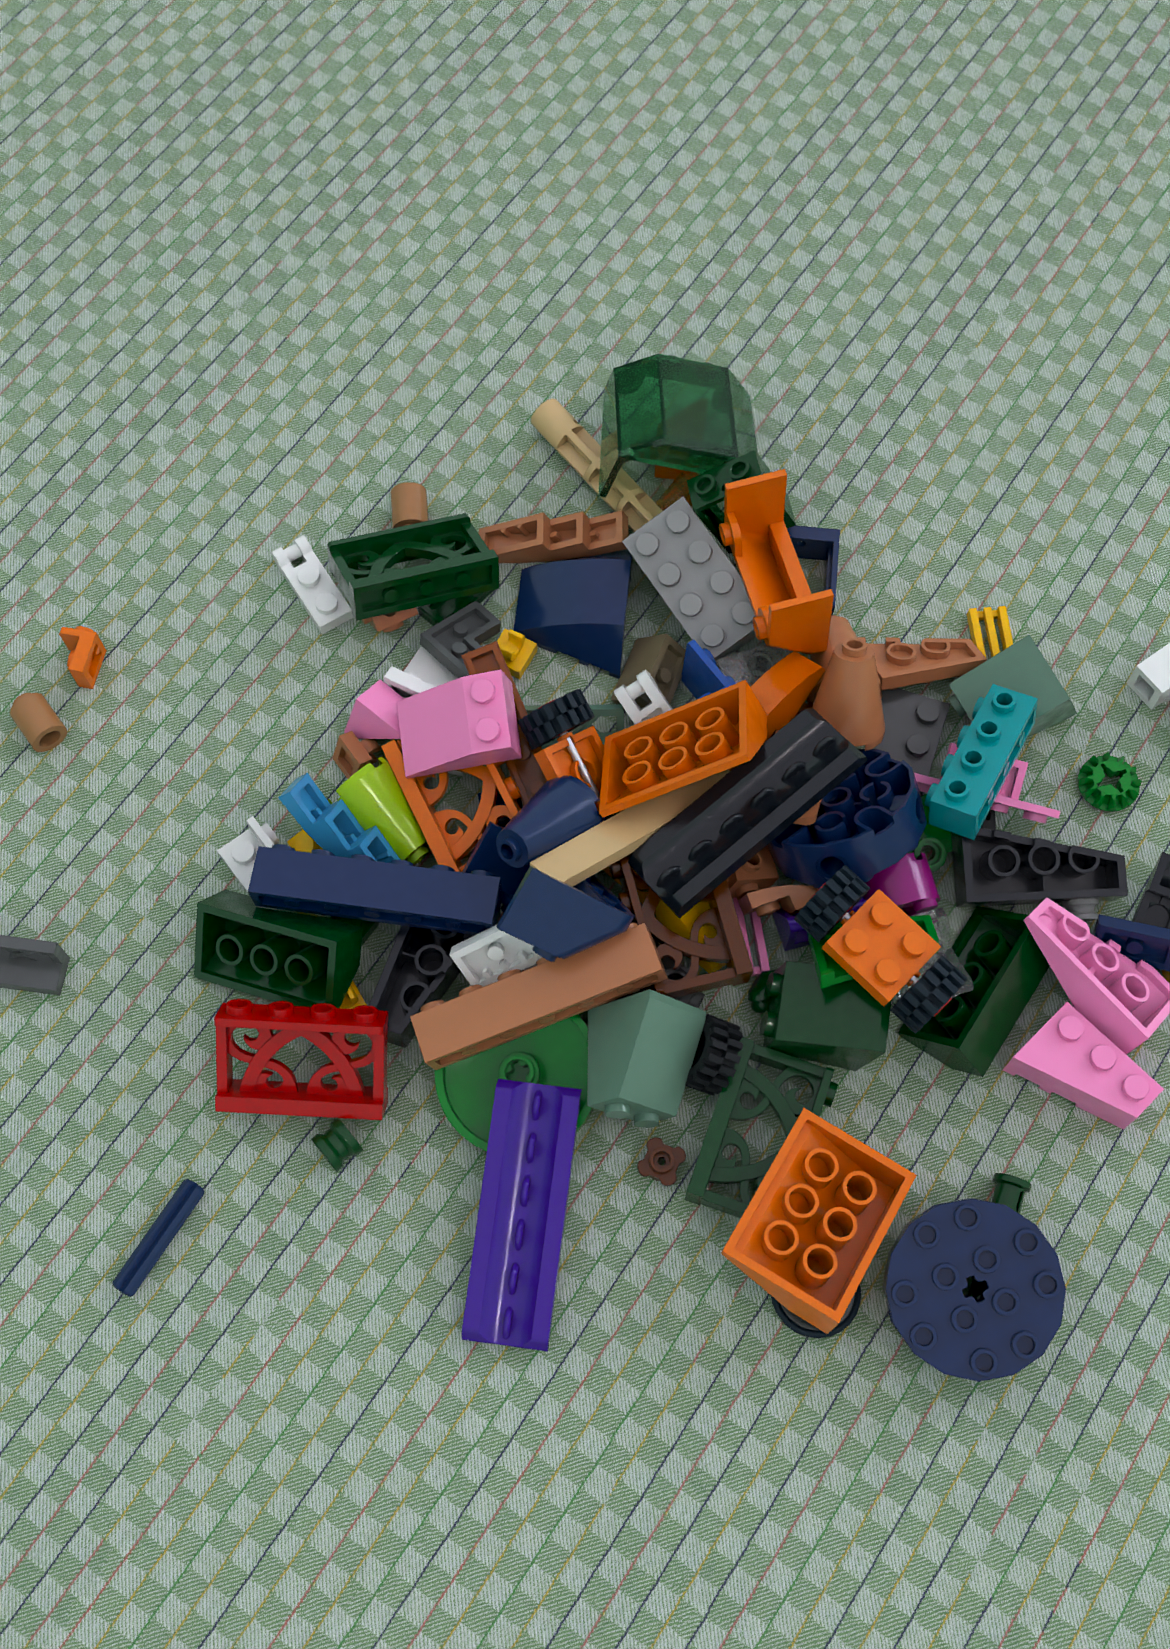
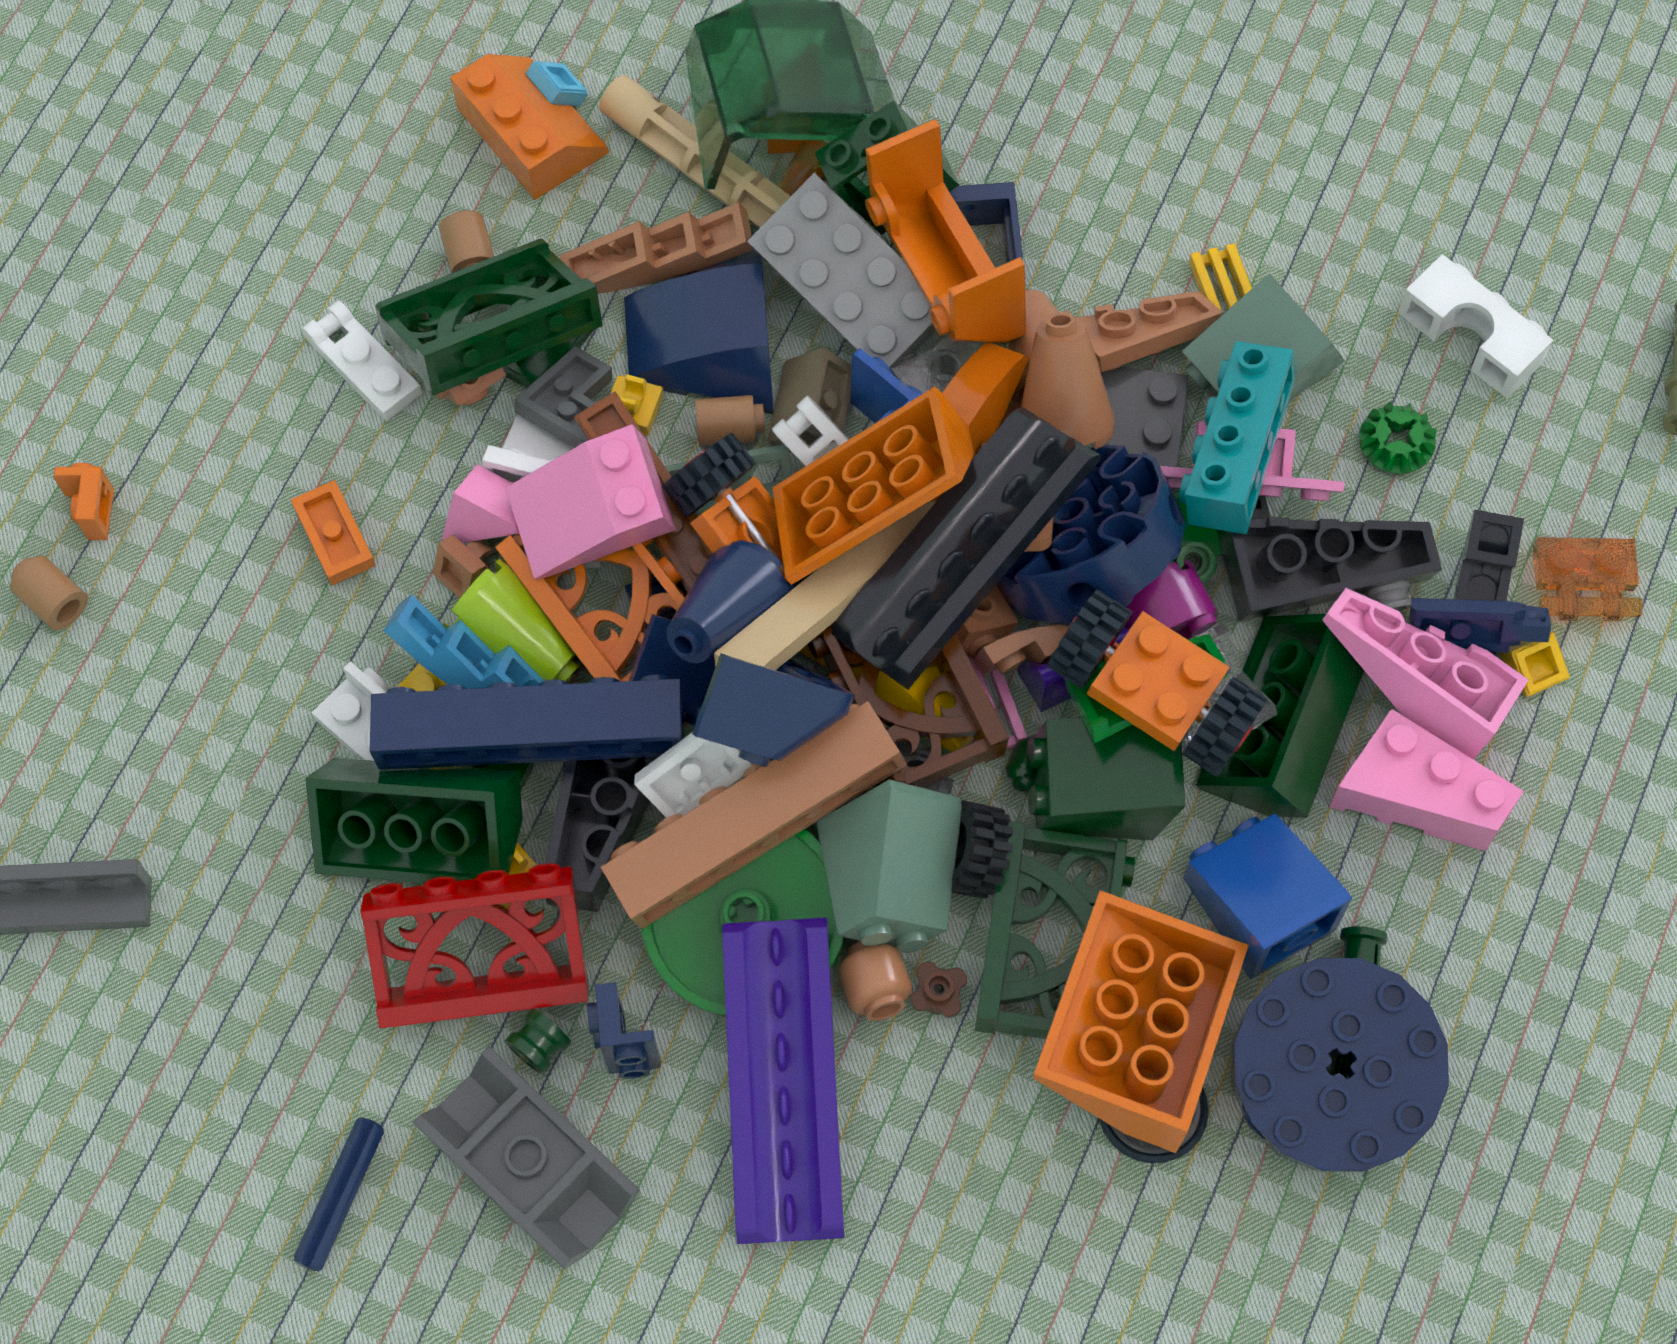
camera: 10 degrees left, 0 degrees up
(262, 713) = (333, 532): none -> orange plate
(310, 1240) = (529, 1160): none -> dark grey piece
(394, 1145) = (624, 1053): none -> dark blue bracket
(473, 422) = (529, 134): none -> orange slope
(502, 397) = (557, 83): none -> medium azure tile
(584, 675) = (728, 414): none -> medium nougat brick
(611, 1146) = (874, 981): none -> nougat head
(939, 1131) = (1266, 892): none -> blue slope

